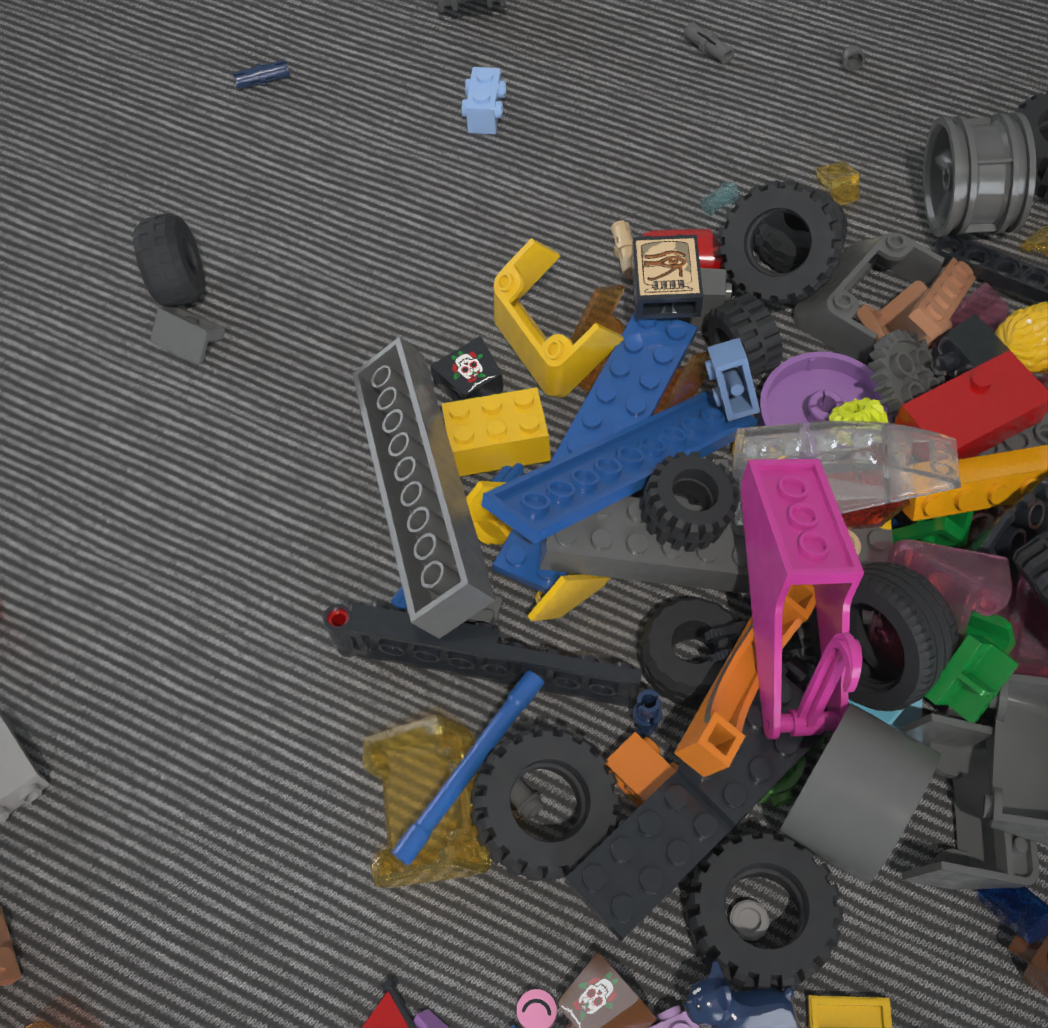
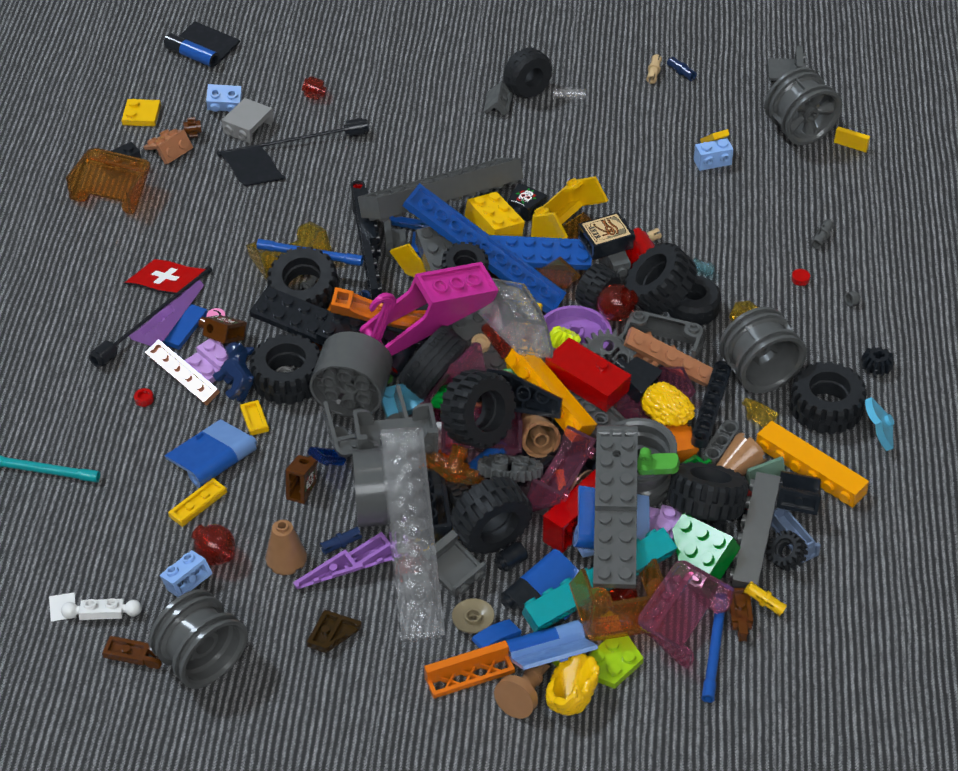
camera: 65 degrees right, 15 degrees down
(123, 797) = (255, 166): none -> black flag
(230, 231) = (569, 93): none -> clear pin
(242, 106) = (654, 69): none -> tan pin
(453, 83) = (715, 136): none -> yellow tile
(734, 380) = (562, 284): medium blue brick -> none
(783, 97) = (800, 277): none -> red tile
(805, 320) = (616, 302): none -> clear red brick
(973, 677) = (424, 389): green panel -> none
(991, 73) = (877, 361): none -> black gear

